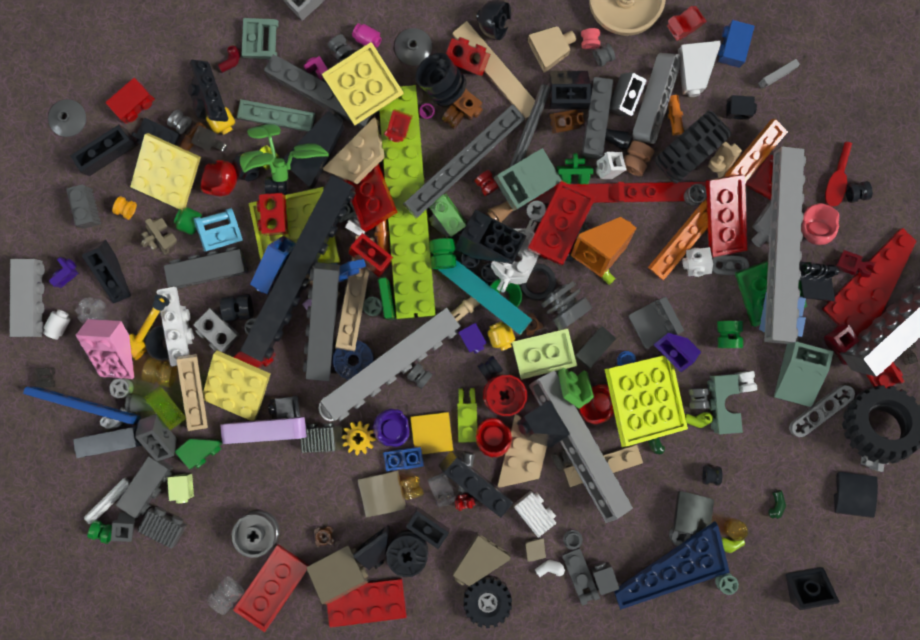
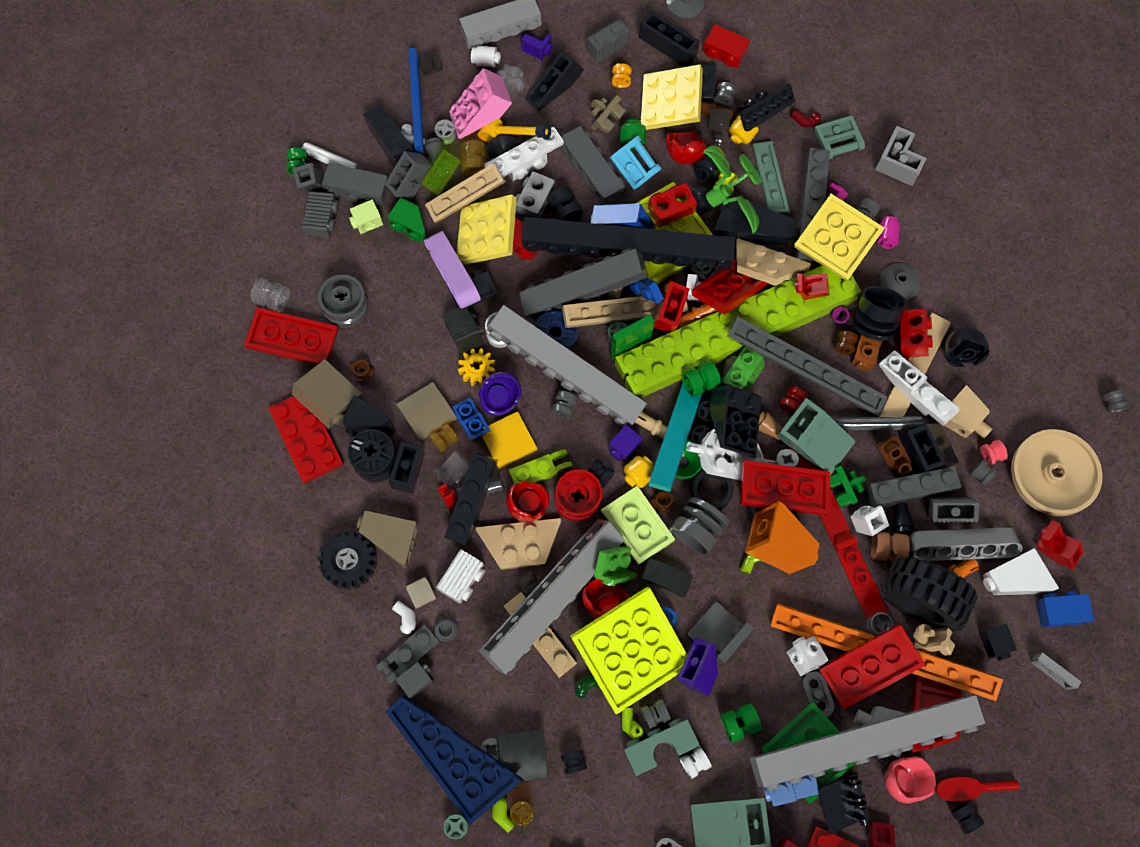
camera: 75 degrees right, 15 degrees down
(516, 77) = (916, 389): none -> white slope
(543, 426) = (559, 546): black slope -> none

